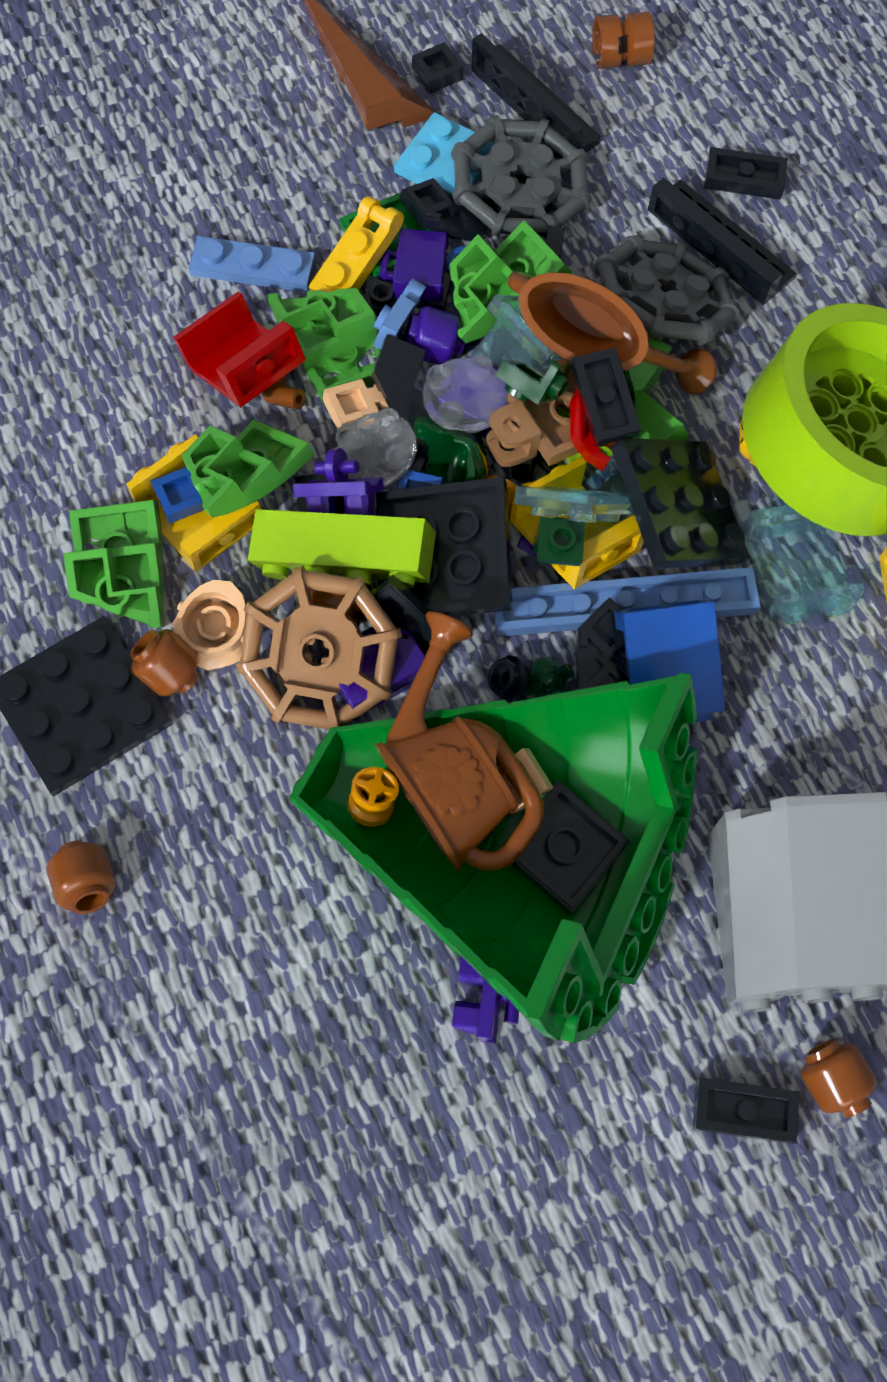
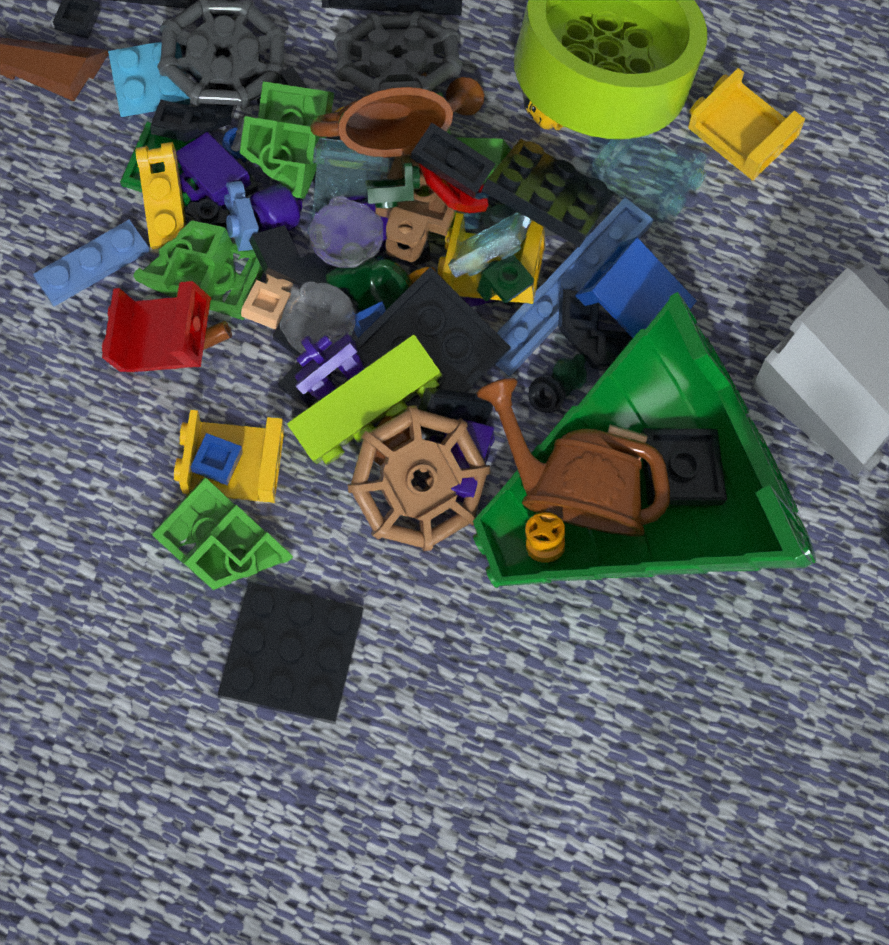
camera: 45 degrees left, 0 degrees up
(81, 877) = (412, 750): dark orange head -> none
(165, 662) = (325, 573): dark orange head -> none
(206, 617) = (324, 512): light nougat hat -> none
(243, 468) = (244, 402): bright green slope -> none
(482, 1017) = (734, 608): dark purple hips -> none

